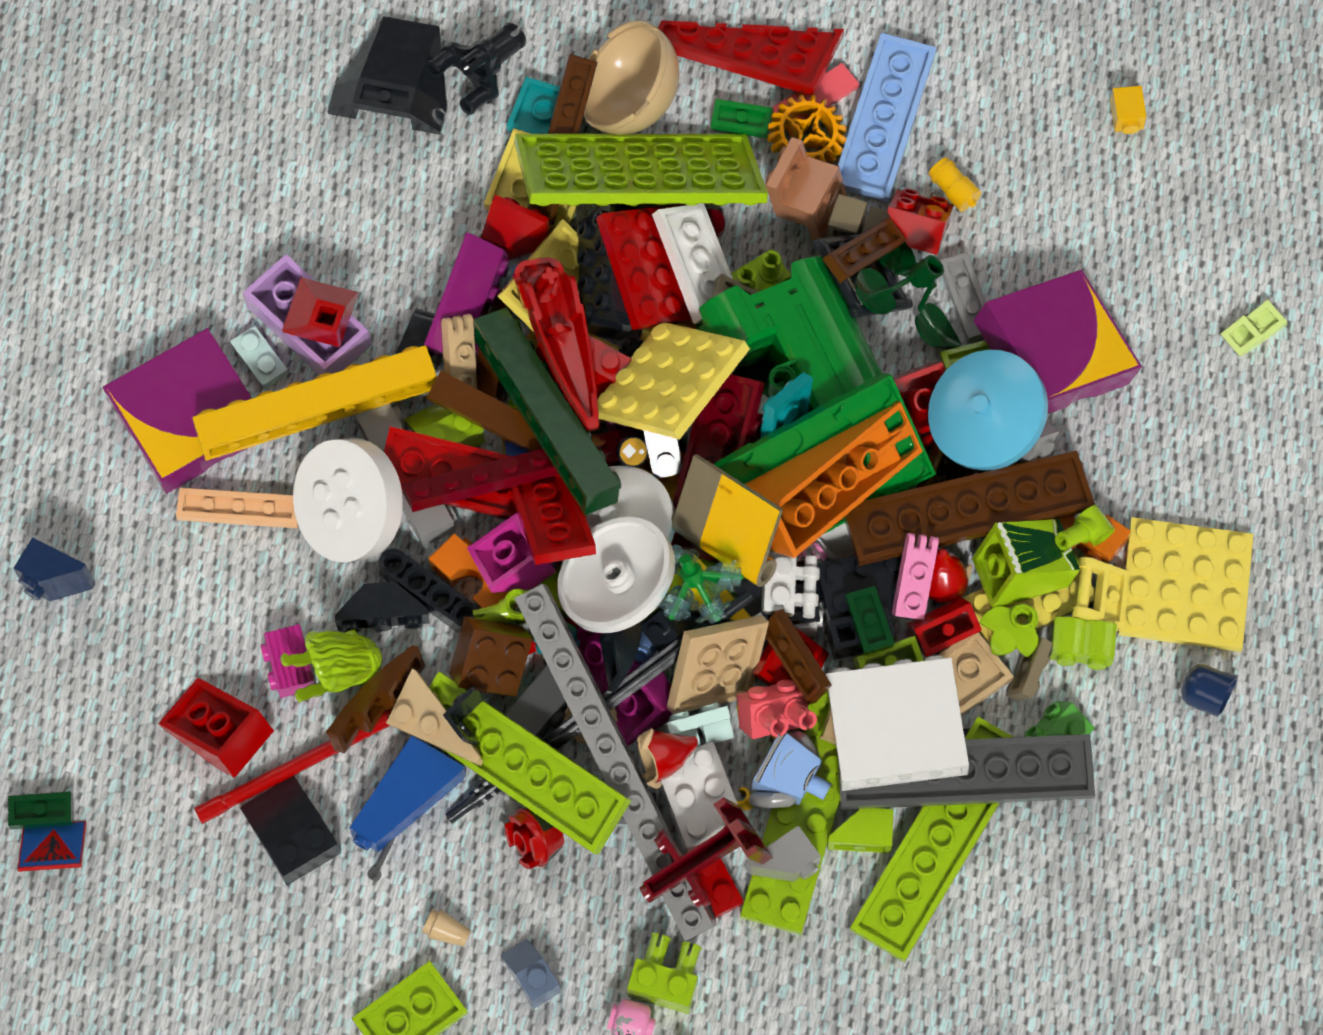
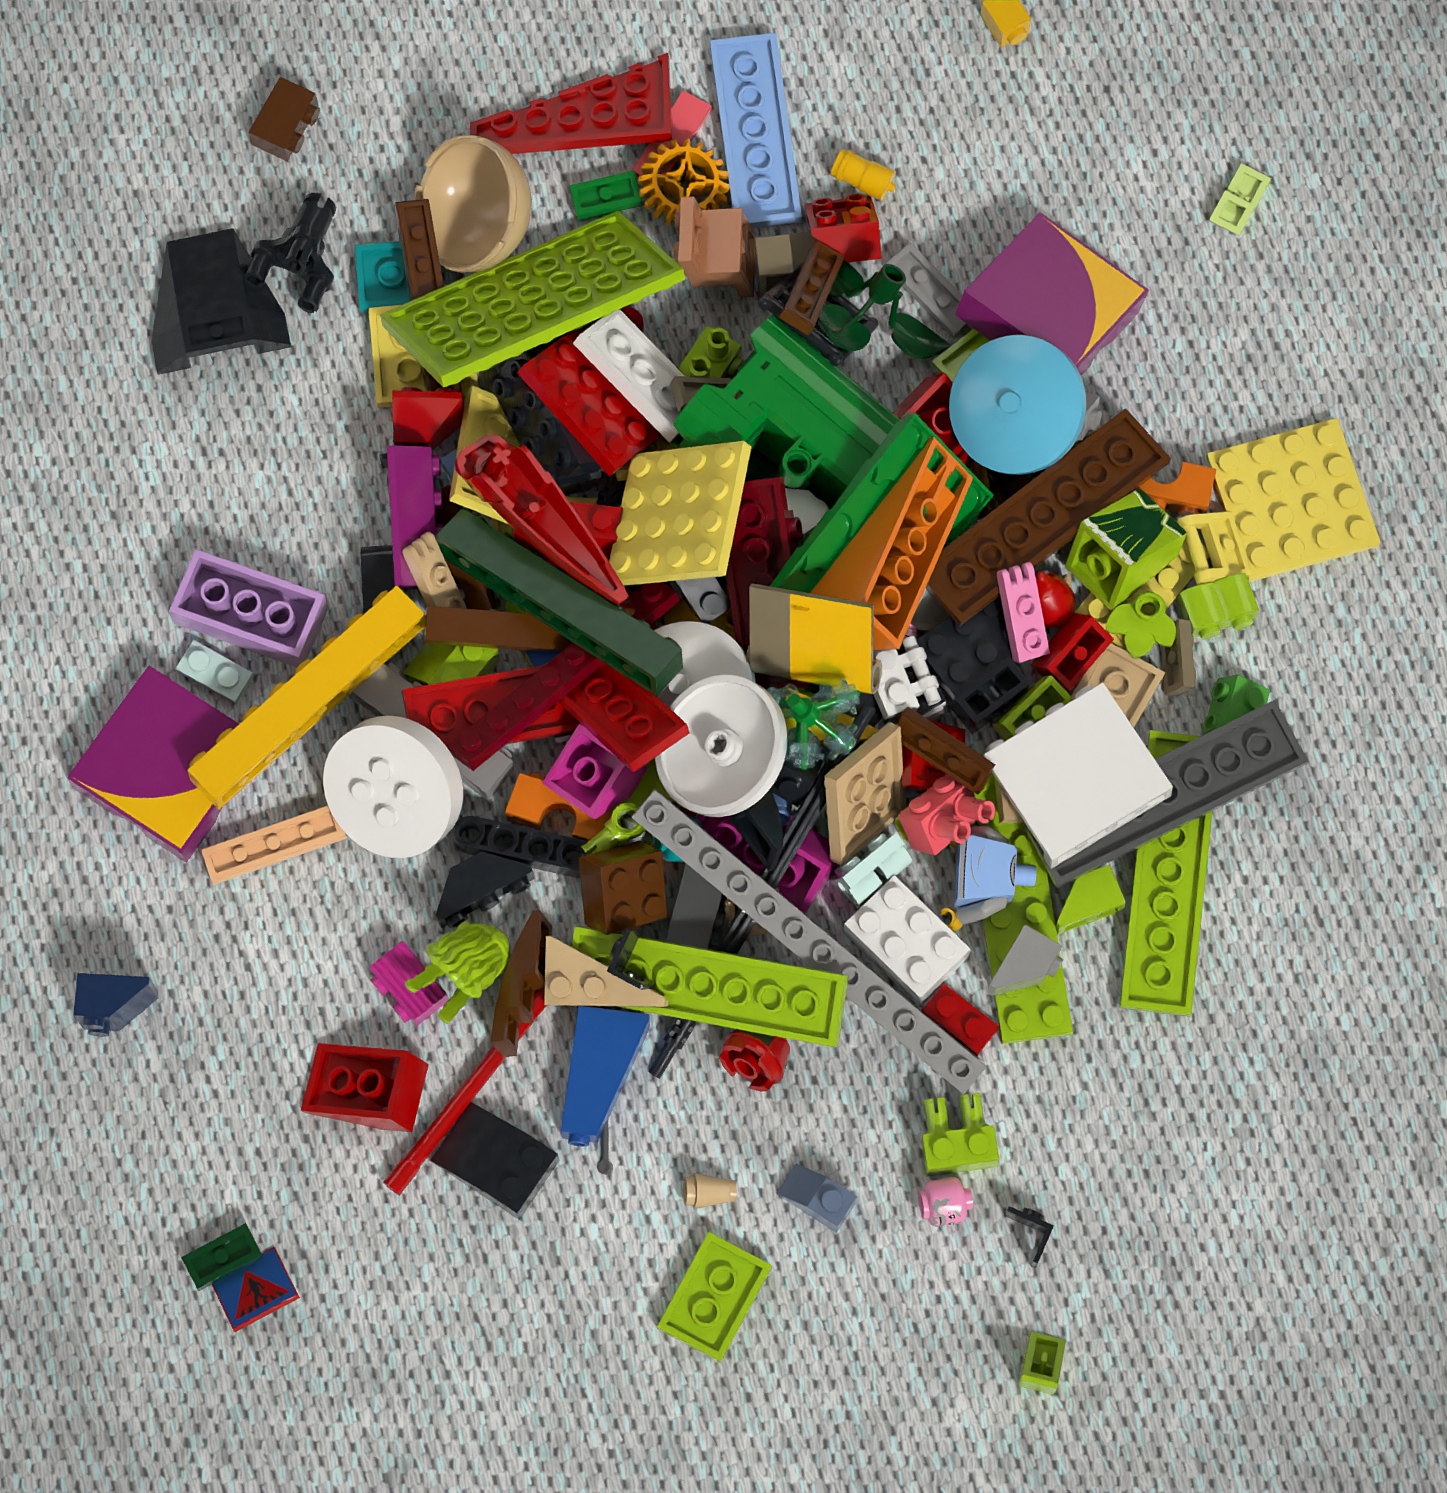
camera: 25 degrees left, 5 degrees up
(320, 312) = (265, 597): red slope -> none
(631, 451) = (668, 606): tile -> none
(663, 754) = (854, 912): red hat -> none
(735, 834) = (934, 1020): dark red piece -> none
(787, 405) = (819, 492): teal plate -> none
(869, 620) = (998, 679): dark green plate -> none
(1088, 527) = (1174, 484): lime pin -> none
(1208, 688) = (1365, 600): dark blue helmet -> none

